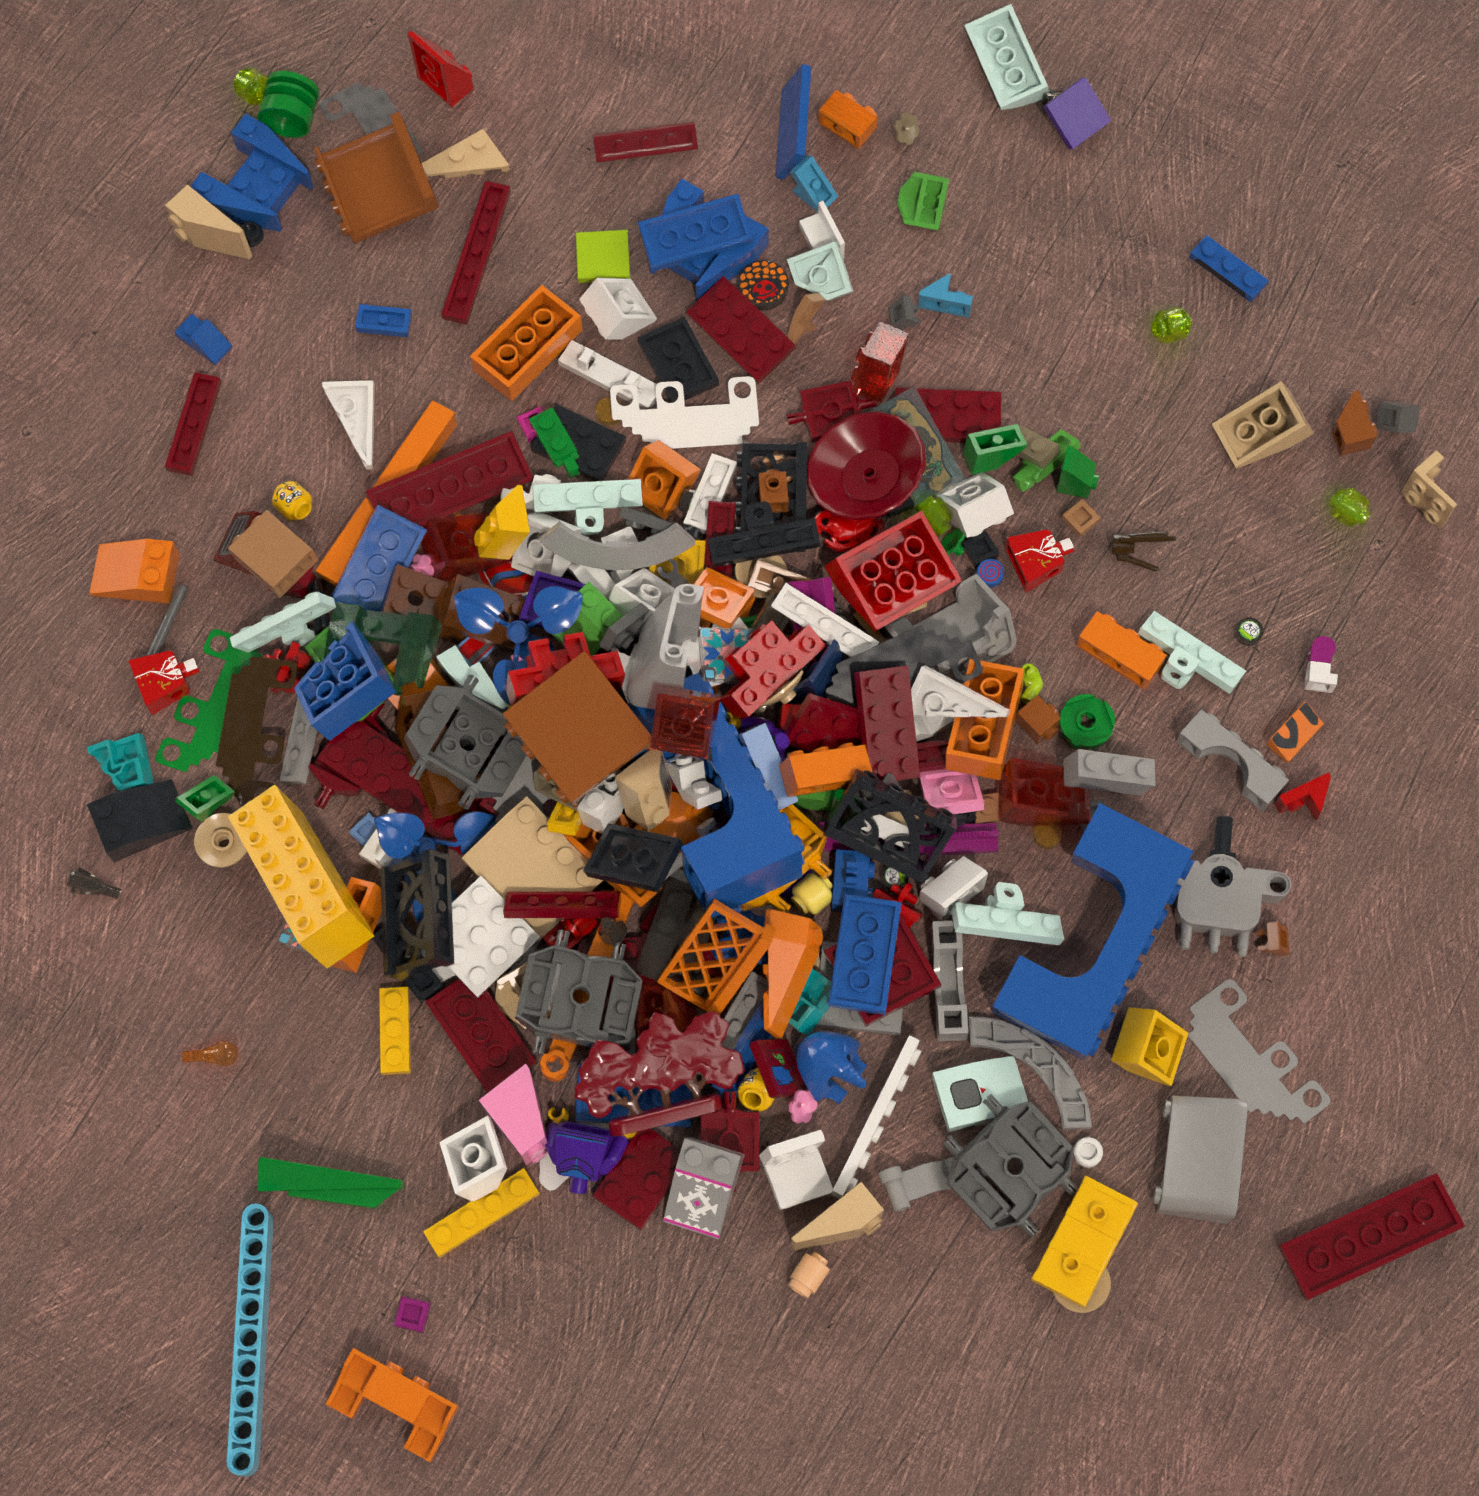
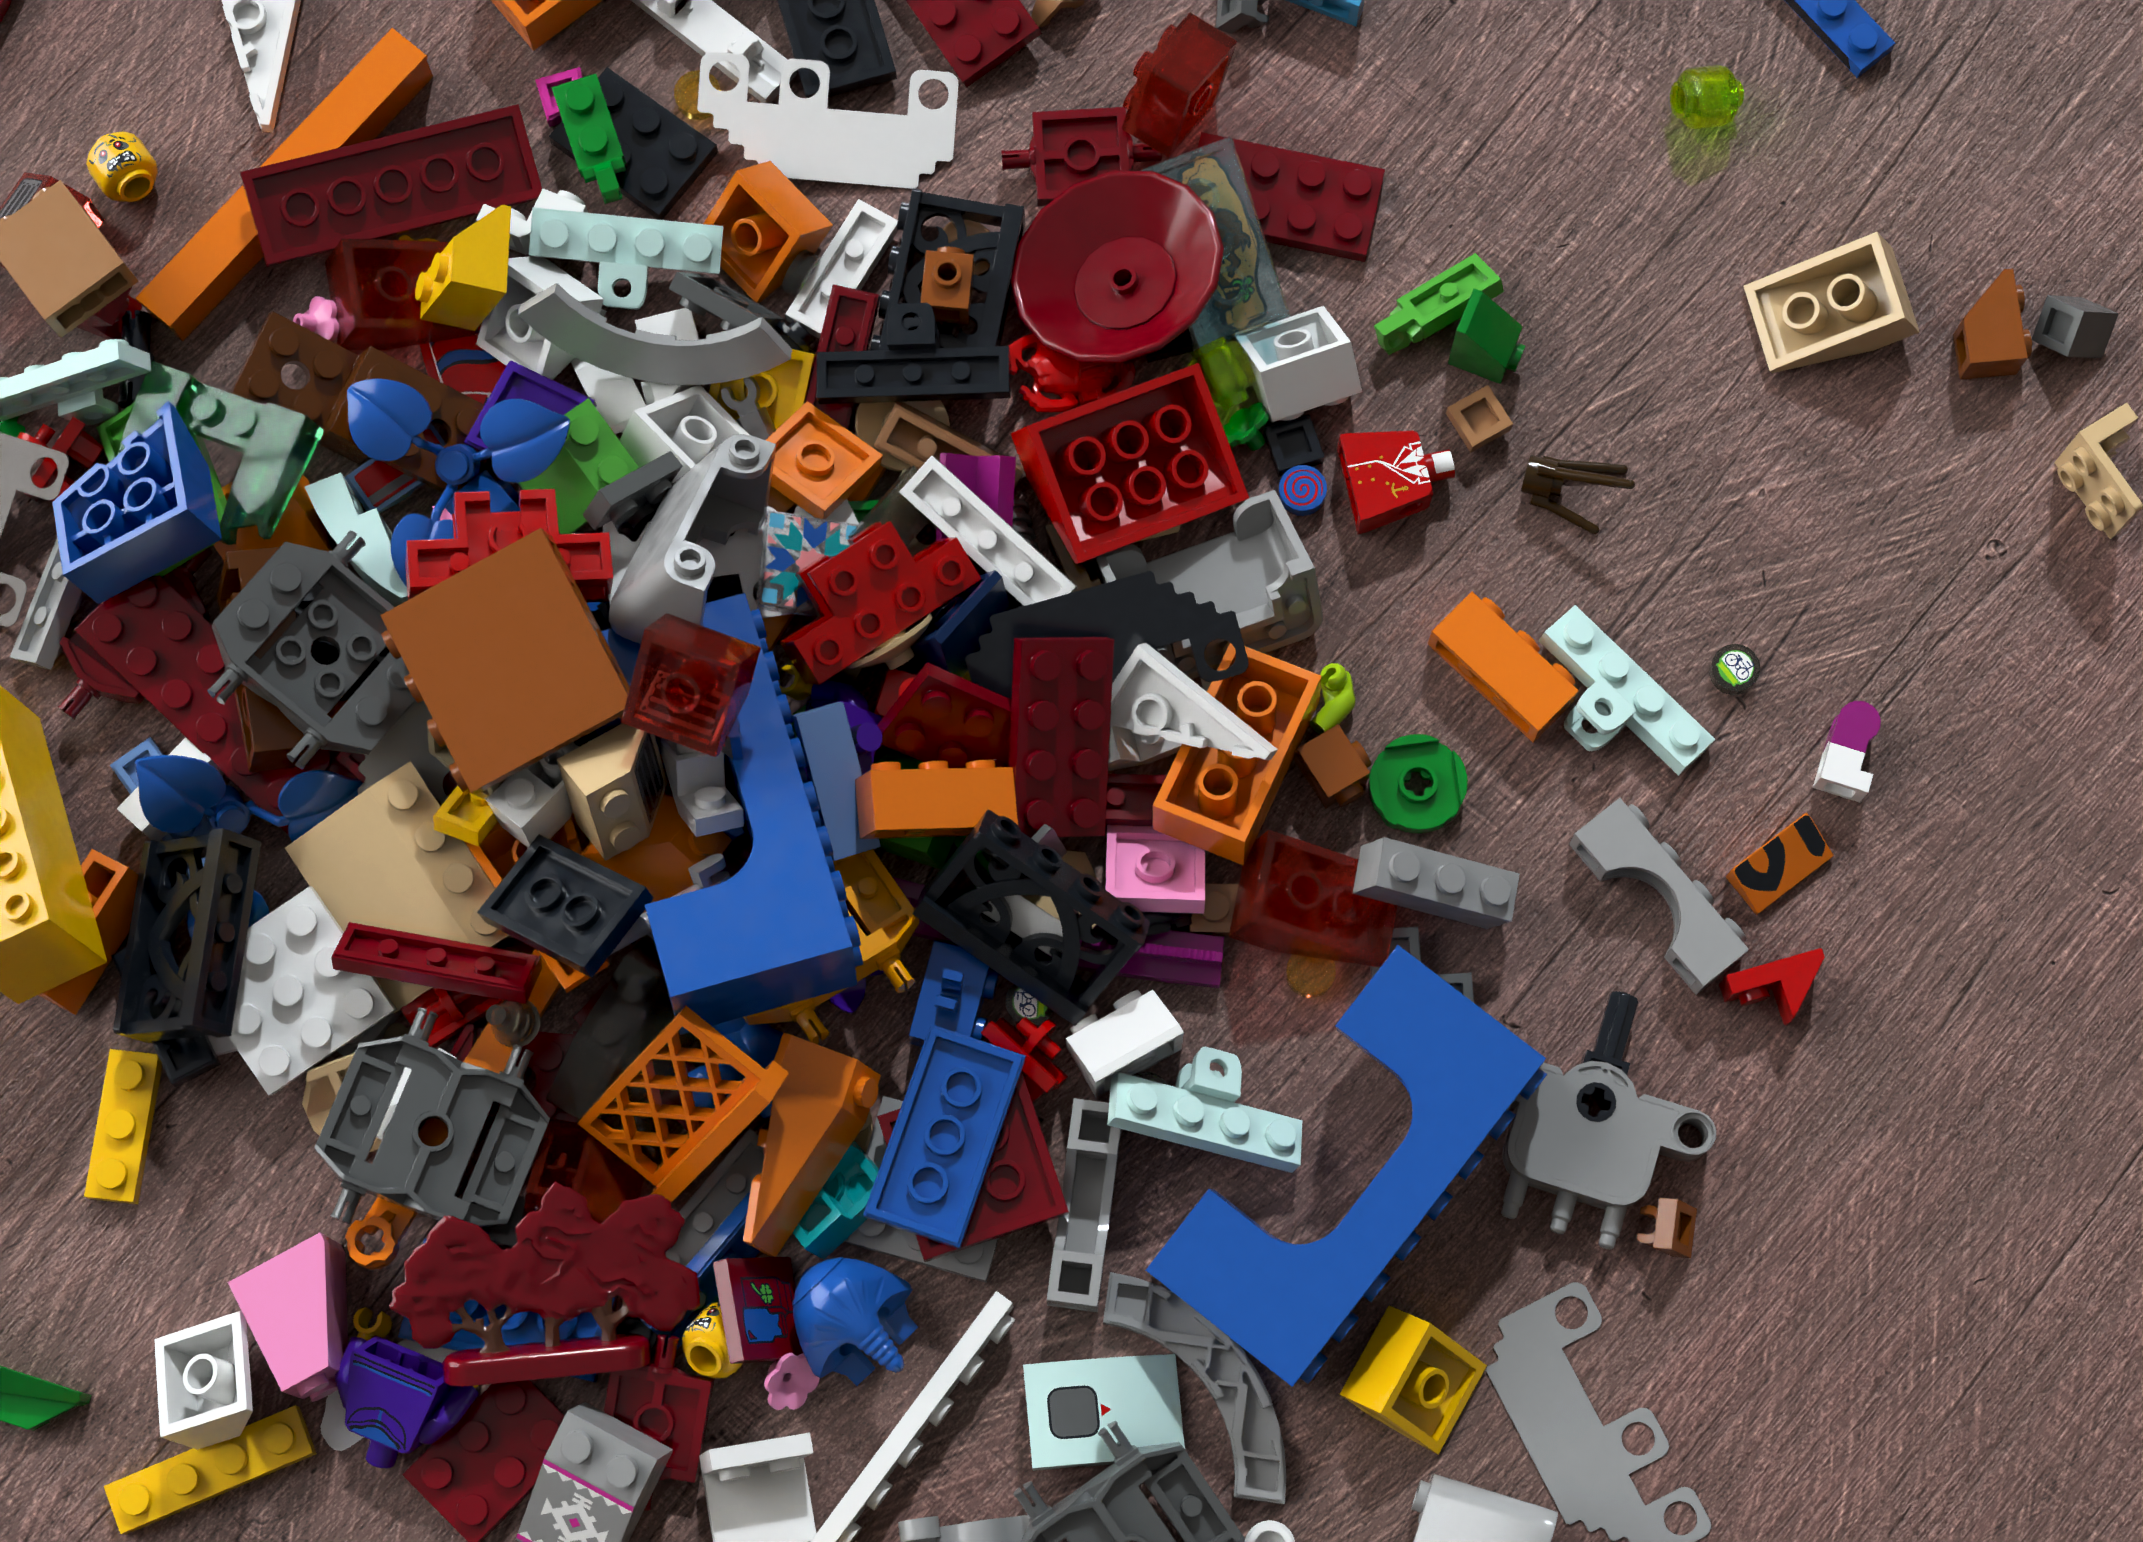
camera: 10 degrees right, 5 degrees up
(382, 546) = (257, 271): blue tile -> none
(480, 1034) = (265, 1159): dark red plate -> none
(812, 894) = (878, 1011): light yellow head -> none
(993, 448) = (1348, 268): green slope -> none
(1039, 449) = (1416, 276): dark tan plate -> none
(1349, 507) = (1956, 475): clear neon green head -> none

